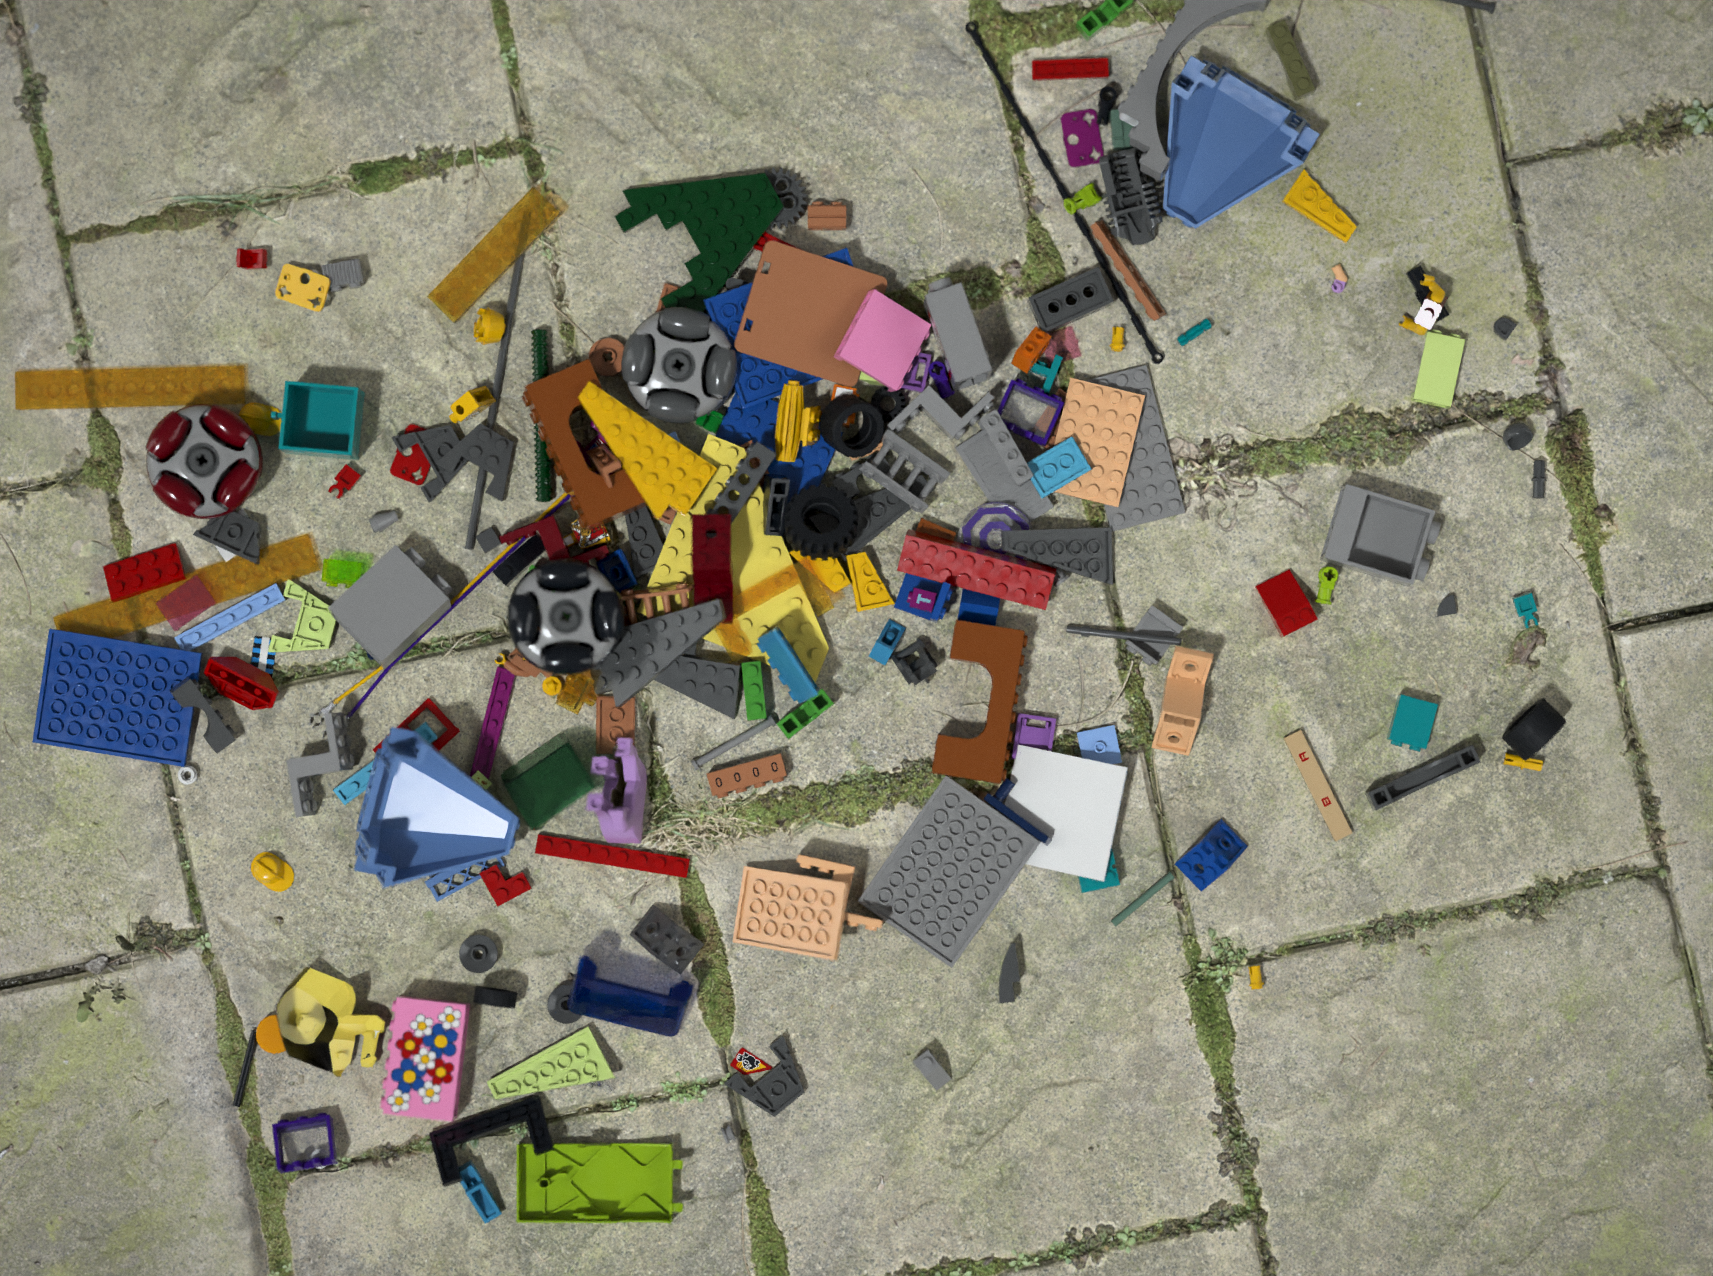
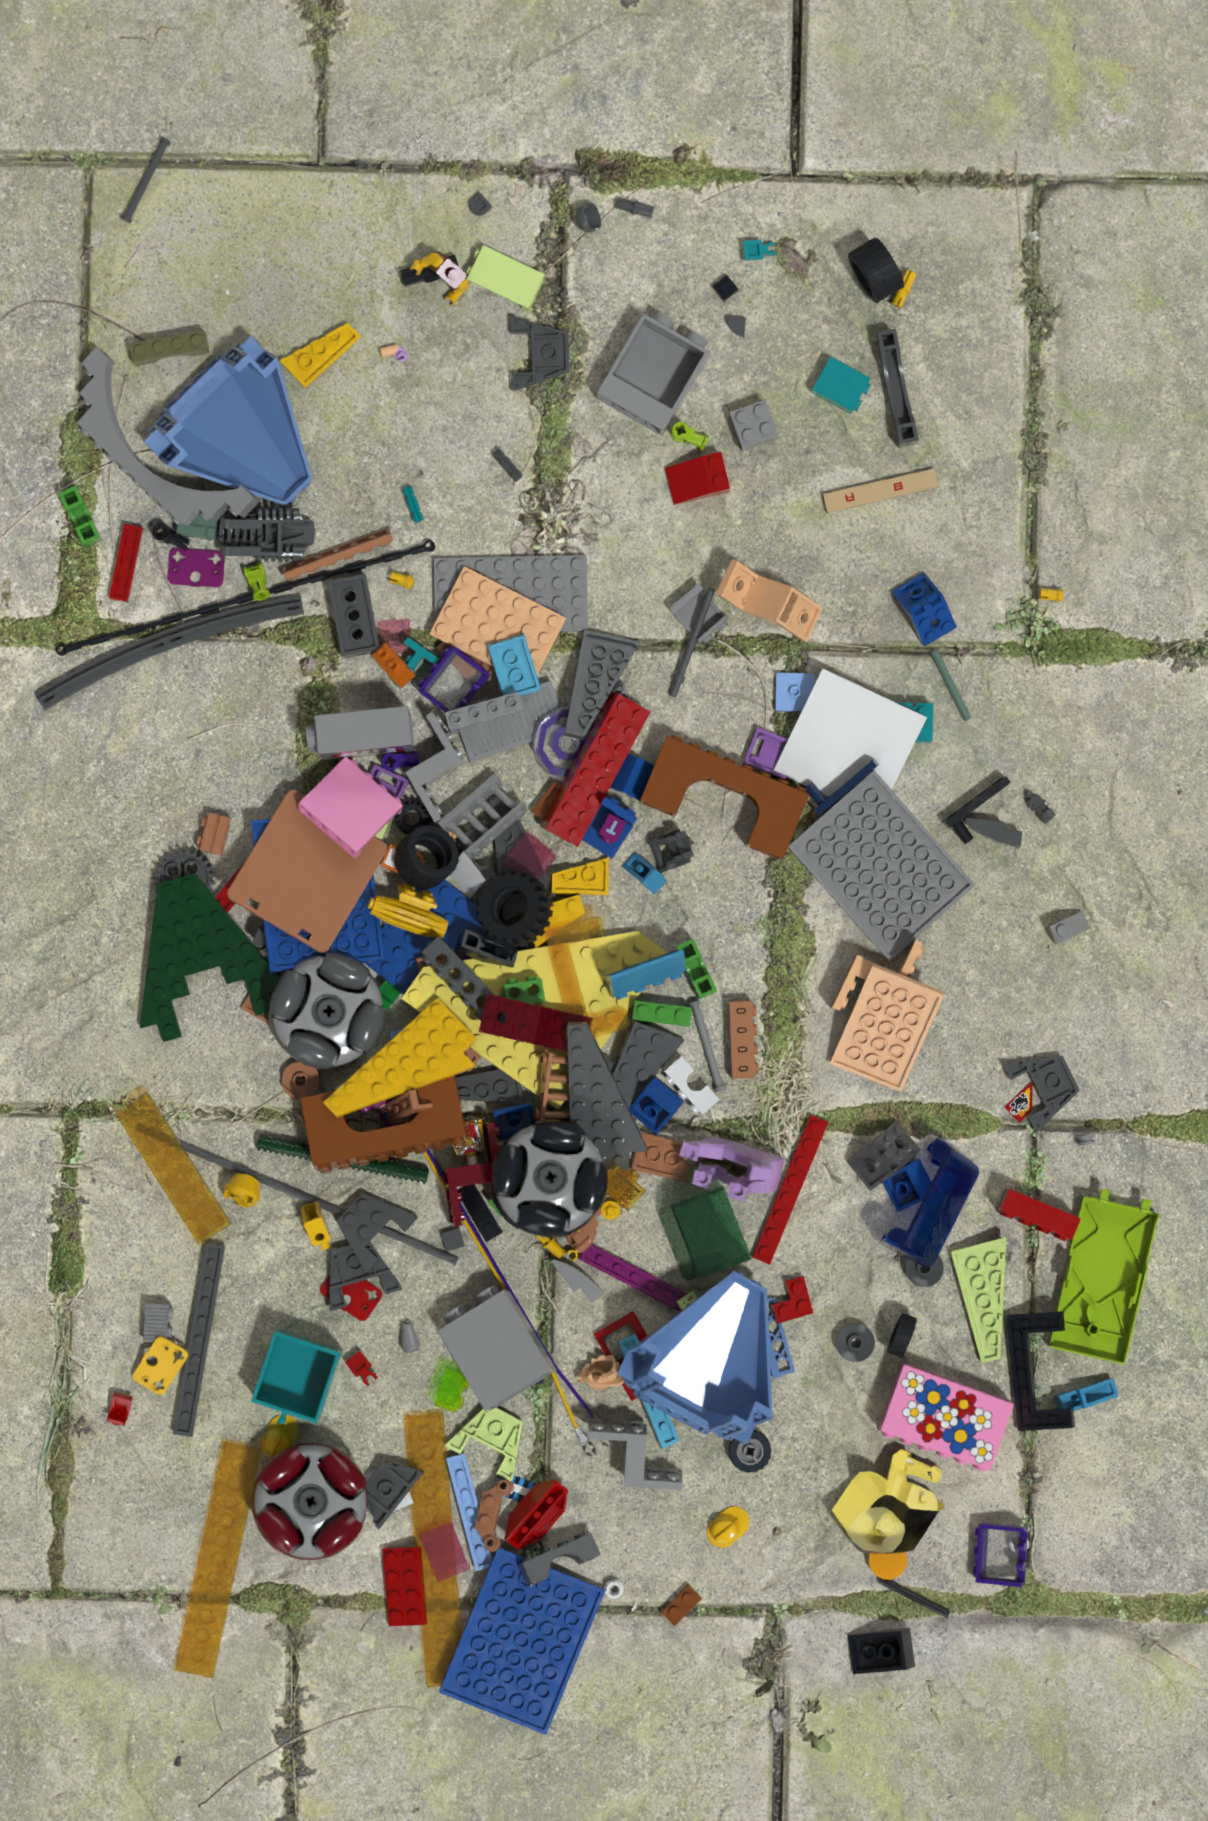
camera: 85 degrees left, 0 degrees up
(185, 1049) = (881, 1651): none -> black slope
(186, 844) = (681, 1605): none -> dark orange plate
(232, 637) = (489, 1513): none -> nougat plate
(336, 319) = (199, 1339): none -> dark grey plate
(340, 881) = (754, 1461): none -> wheel
(391, 712) = (601, 1373): none -> light nougat hair
(477, 670) = (577, 1279): none -> light grey slope
(502, 640) = (552, 1246): none -> yellow axle
(643, 969) = (908, 1185): none -> blue slope
(644, 1103) = (1038, 1213): none -> red brick
(663, 706) = (655, 1105): none -> blue slope
(698, 720) = (678, 1074): none -> white arch
(738, 552) = (524, 995): none -> bright green brick
(843, 470) = (467, 876): none -> white sticker
(875, 527) = (530, 857): none -> clear pink tile
(990, 106) = (143, 648): none -> dark grey piece
(1010, 933) = (955, 819): none -> black piece
(1046, 1010) = (1037, 804): none -> dark grey piece
(1255, 415) = (507, 465): none -> dark grey axle
(1351, 645) = (753, 425): none -> light grey brick
(1376, 428) = (549, 353): none -> dark grey wing
(1480, 586) = (725, 288): none -> black plate

